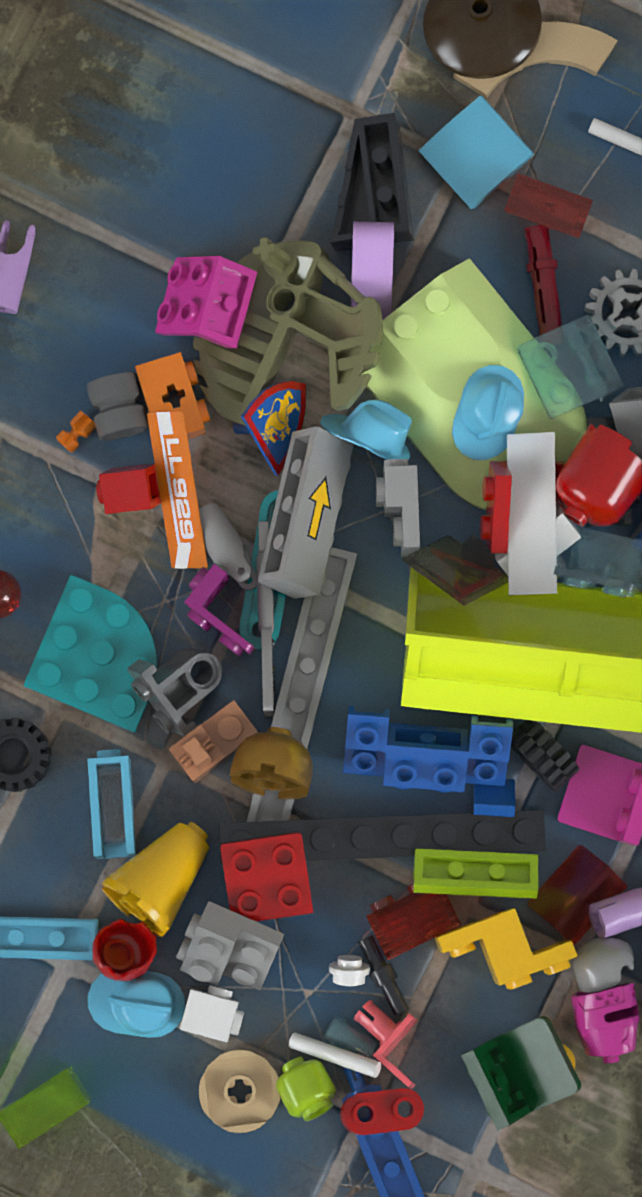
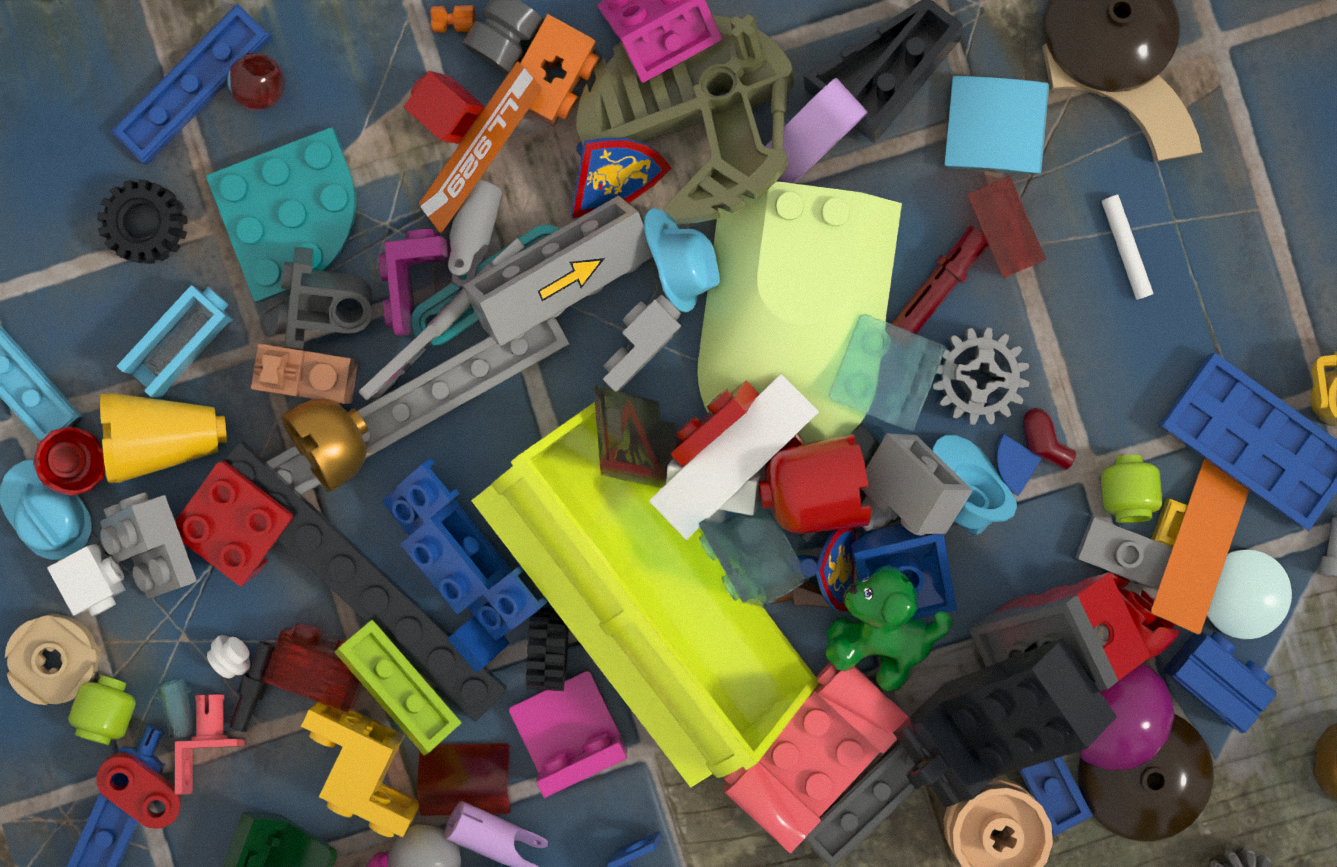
camera: 45 degrees right, 5 degrees up
(335, 1055) = (149, 709): white piece -> none
(488, 412) = (784, 341): medium azure piece -> none

